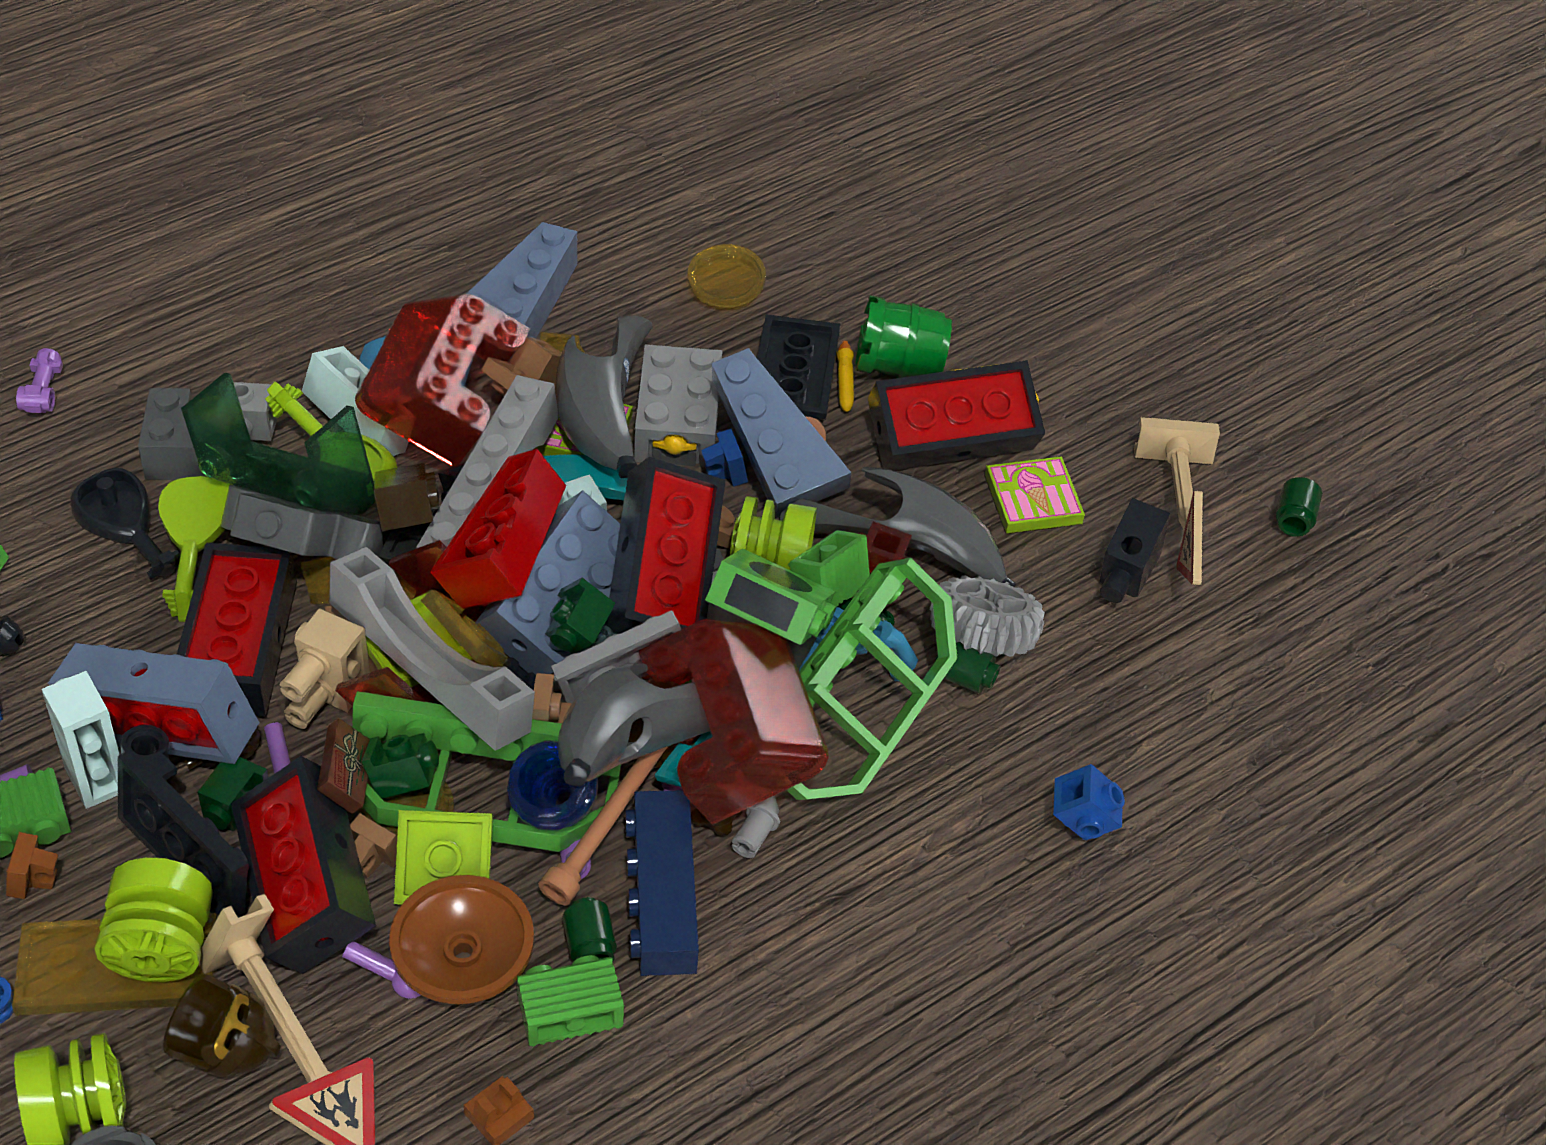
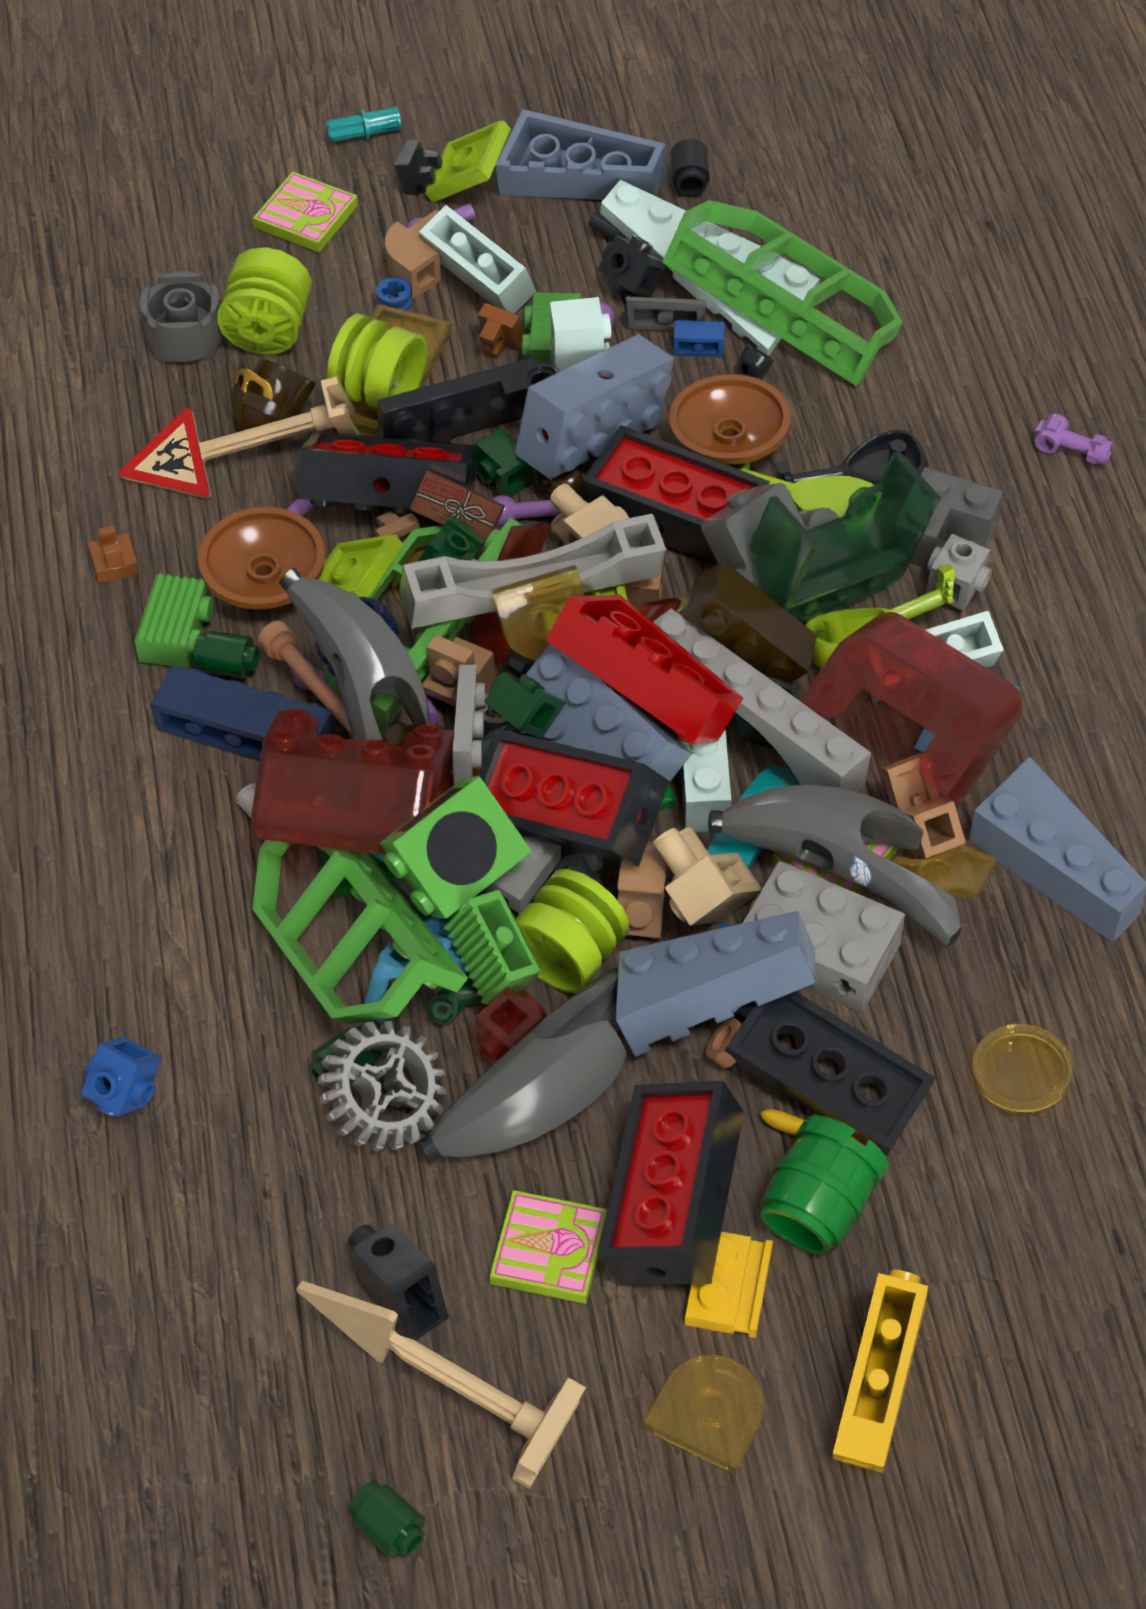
camera: 120 degrees right, 5 degrees up
(112, 598) = (730, 418): none -> dark orange dish
(698, 448) = (704, 884): none -> tan brick
(1011, 281) = (881, 1370): none -> yellow slope
(1093, 373) = (709, 1410): none -> clear yellow tile

